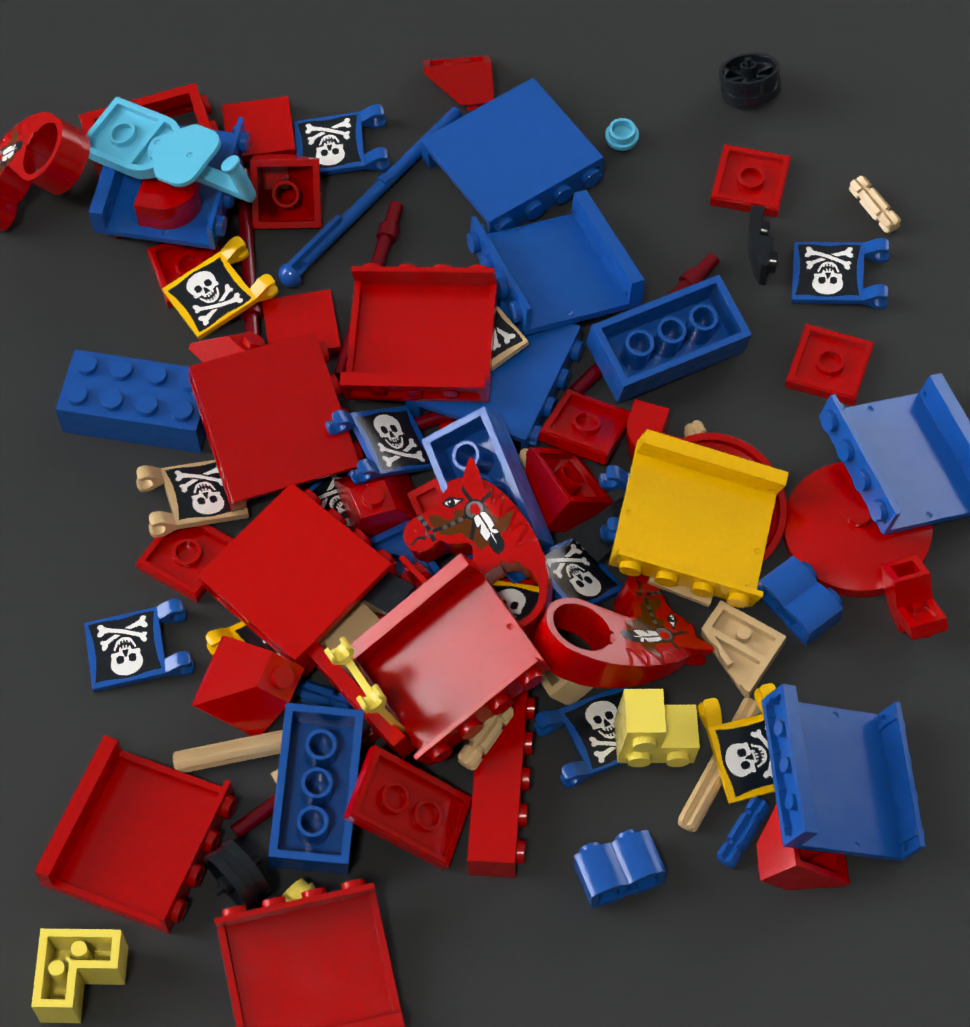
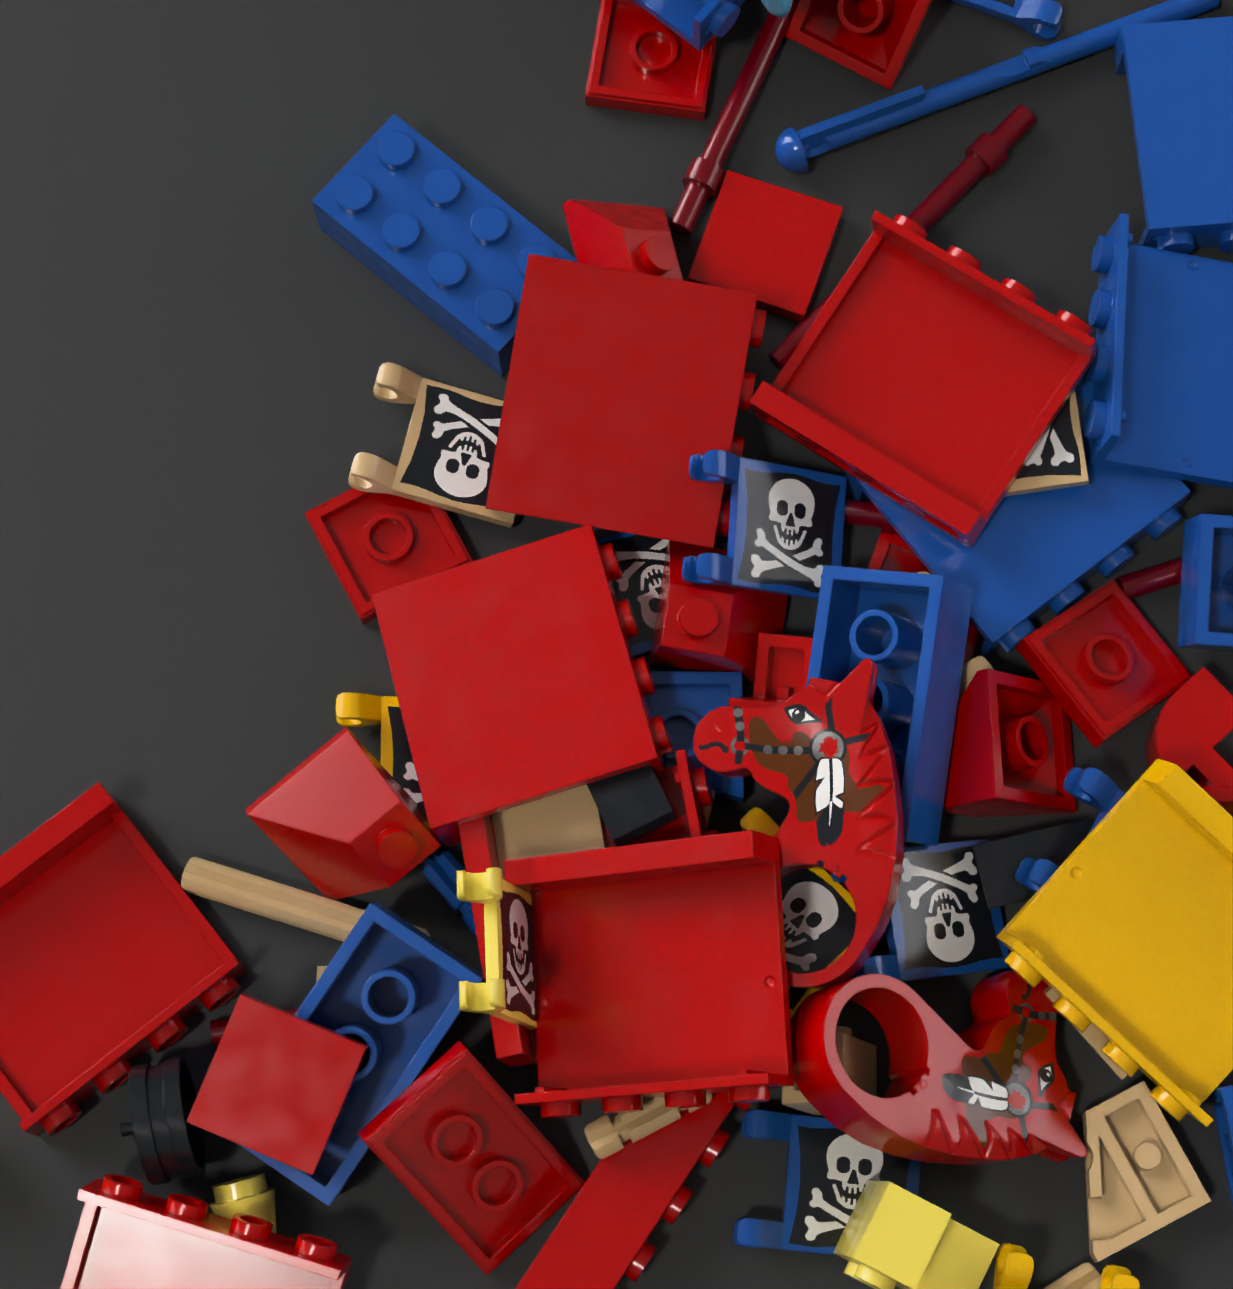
camera: 30 degrees right, 15 degrees up
(131, 647) = (224, 645): flag -> none
(215, 292) = (660, 123): flag -> none
(288, 813) = (277, 1083): none -> red tile

